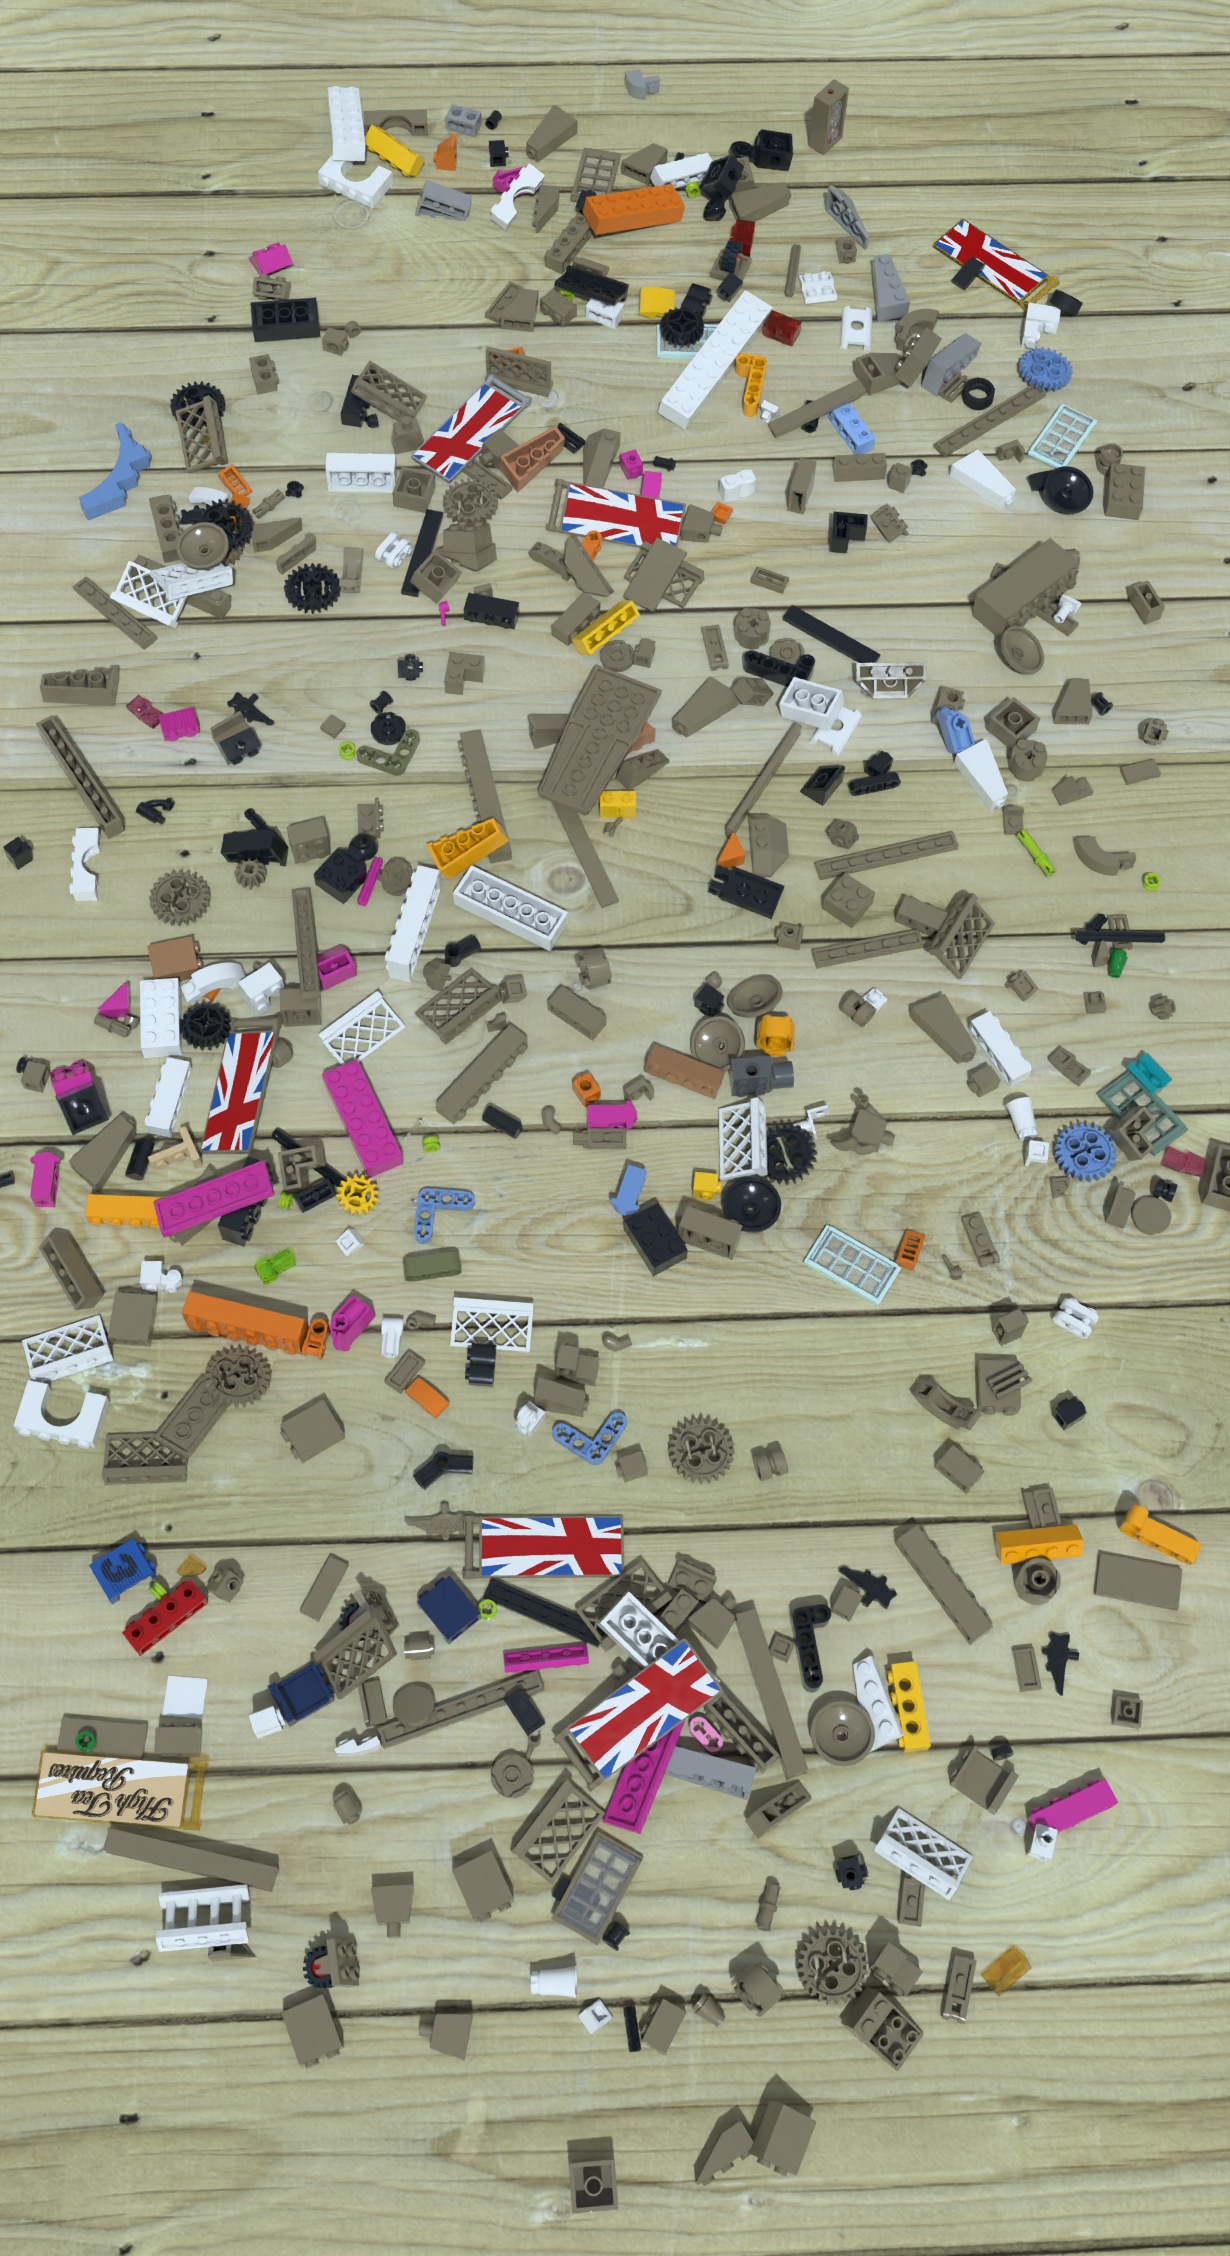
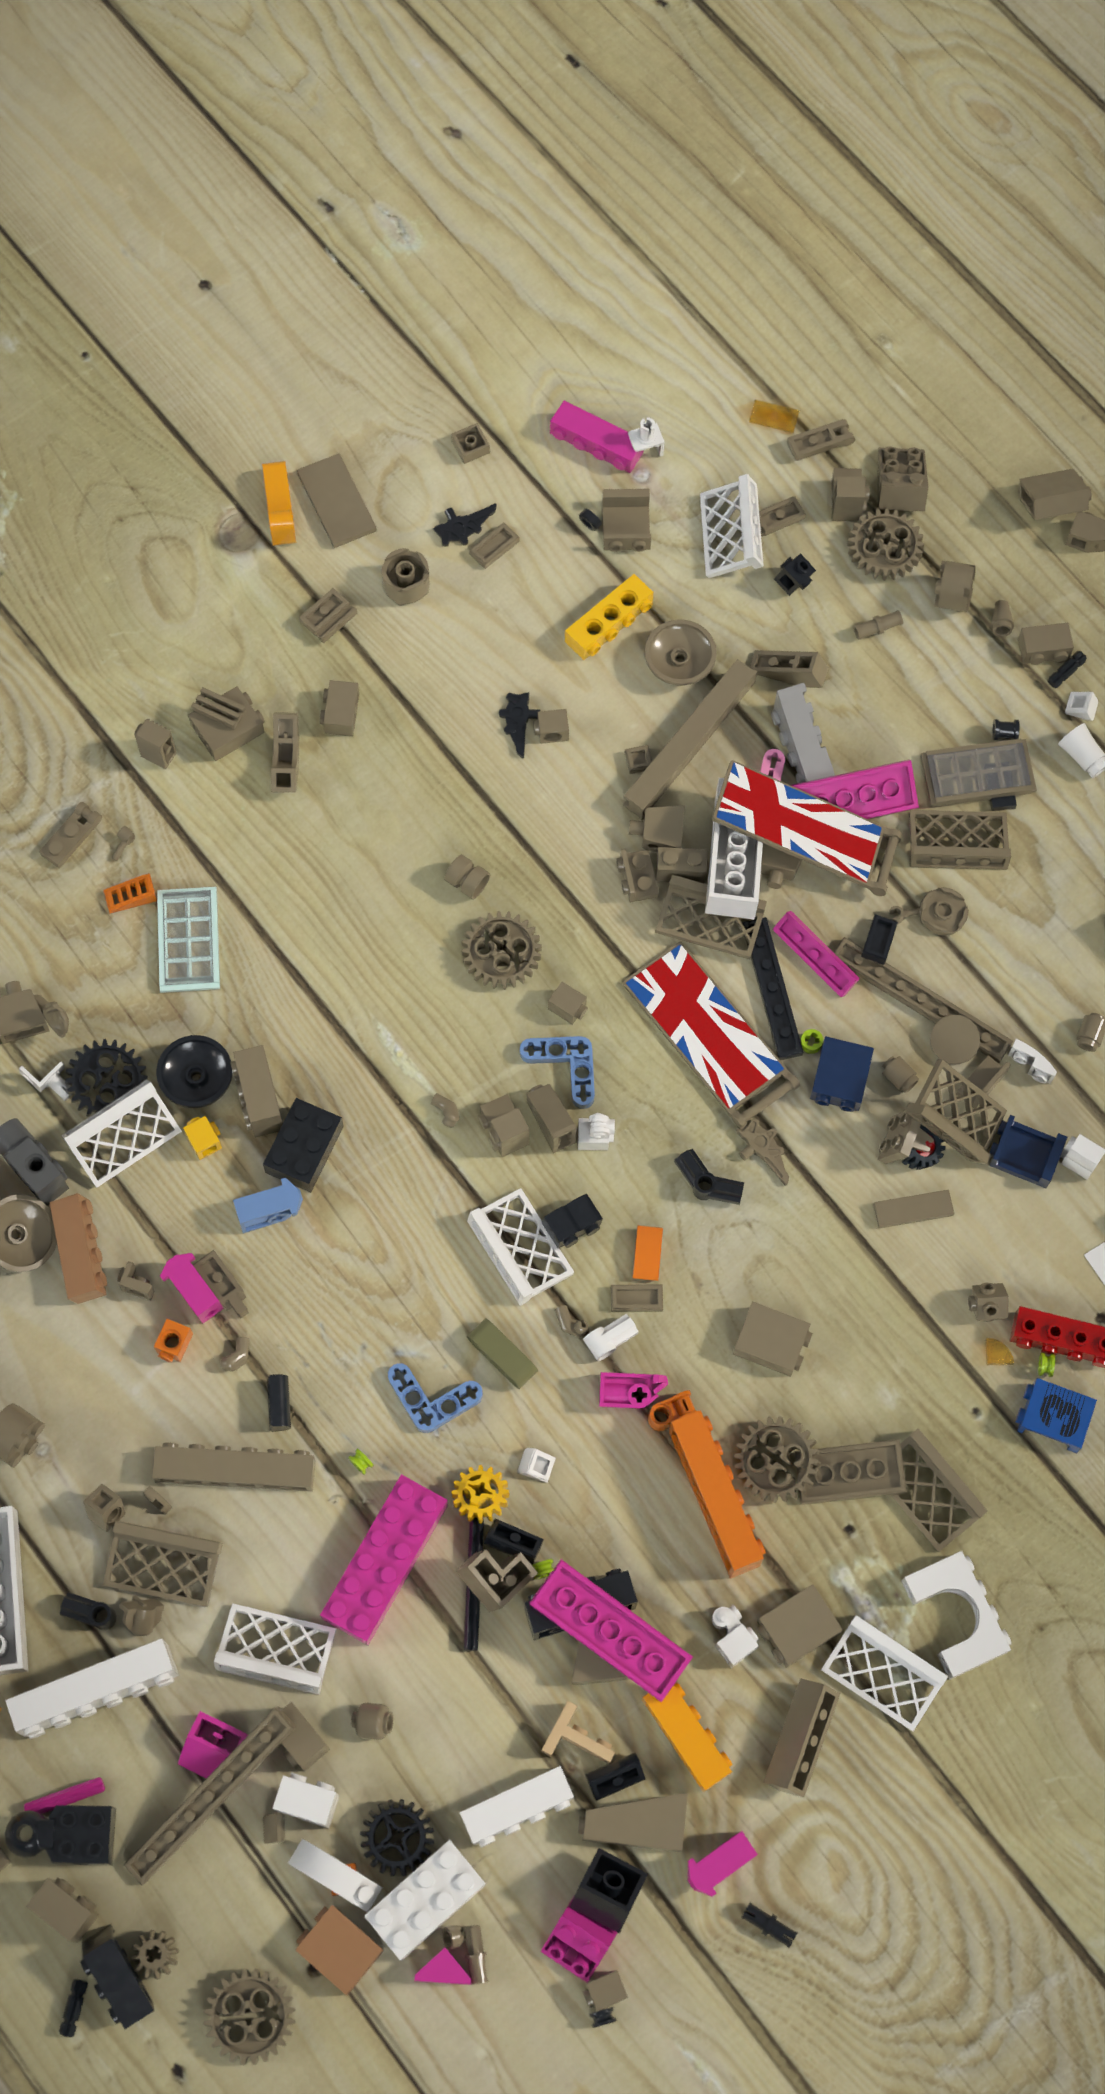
camera: 125 degrees left, 5 degrees up
(240, 1087) = (446, 1728): flag -> none
(269, 1269) = (632, 1523): clear neon green piece -> none
(395, 877) = (42, 1763): dark tan tile -> none
(483, 1887) = (1058, 866): dark tan brick -> none
(577, 1012) = (80, 1419): dark tan brick -> none
(741, 1732) = (751, 727): dark tan brick -> none
(809, 1649) = (621, 731): black beam -> none
(876, 1702) = (627, 646): white wing -> none
(944, 1585) = (469, 656): dark tan brick -> none
(1039, 1543) = (367, 595): light orange brick -> none
(1069, 1412) = (208, 646): black brick -> none
(1076, 1318) = (88, 688): white brick -> none

